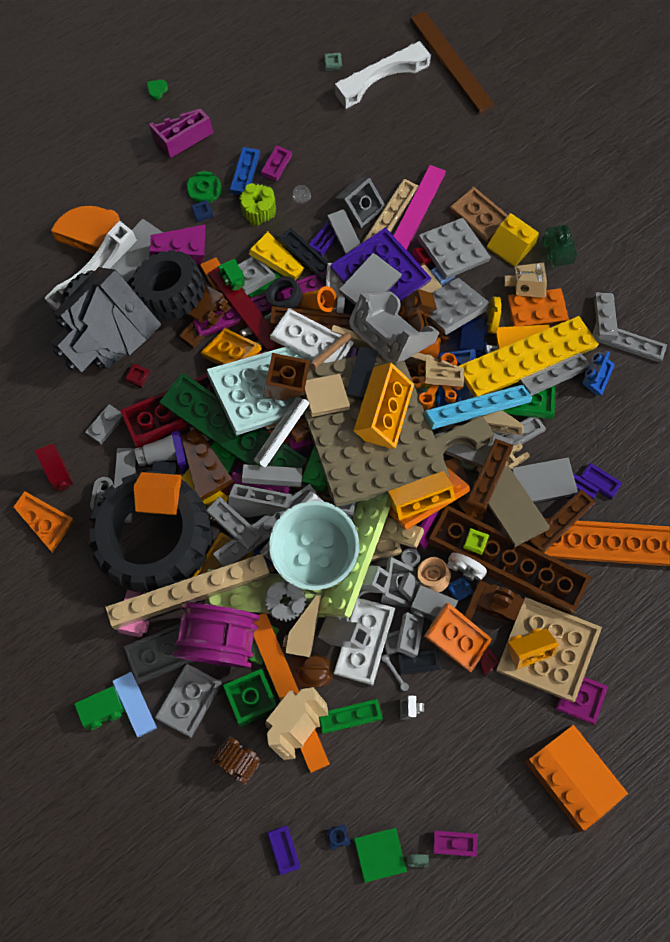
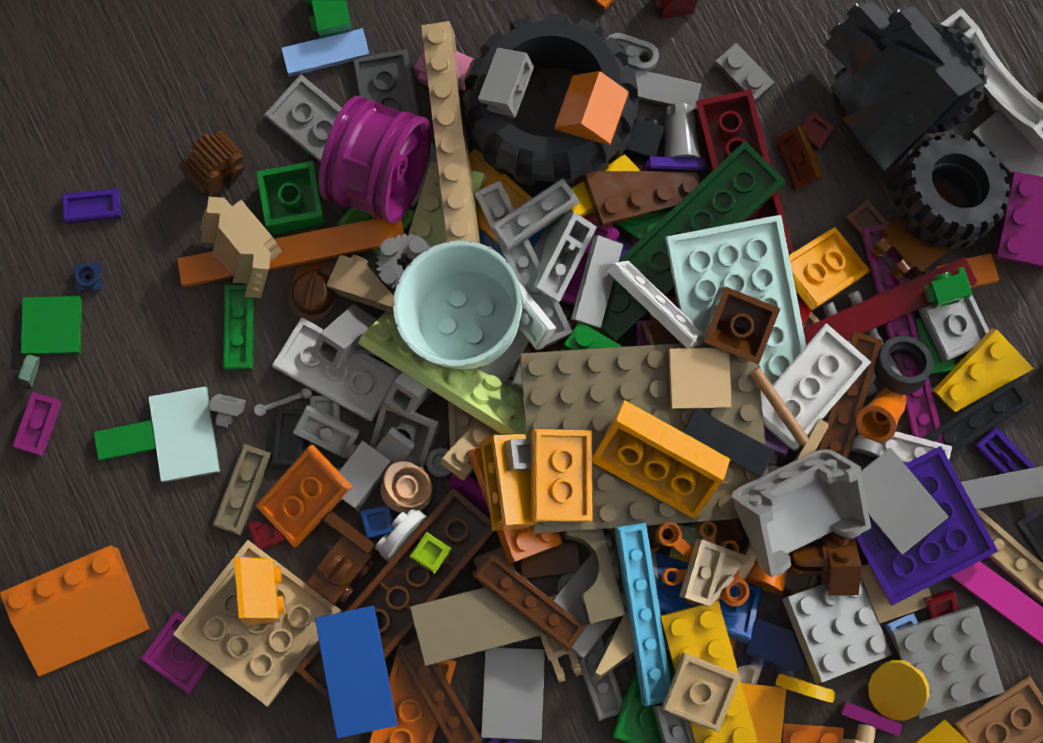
camera: 105 degrees right, 10 degrees up
(147, 552) = (506, 81): none -> light grey hinge
(158, 379) = (800, 157): none -> reddish brown plate
(403, 487) = (518, 454): none -> light grey tile
(410, 461) = (561, 475): none -> light orange tile
(434, 735) = (184, 434): none -> light aqua tile
(450, 776) = (125, 440): none -> green tile
(462, 685) = (242, 489): none -> dark tan tile
(479, 268) = (898, 690): none -> yellow tile
(499, 279) = (870, 718): none -> magenta tile
(515, 366) = (701, 692): none -> tan tile
(565, 570) = (356, 672): none -> blue tile

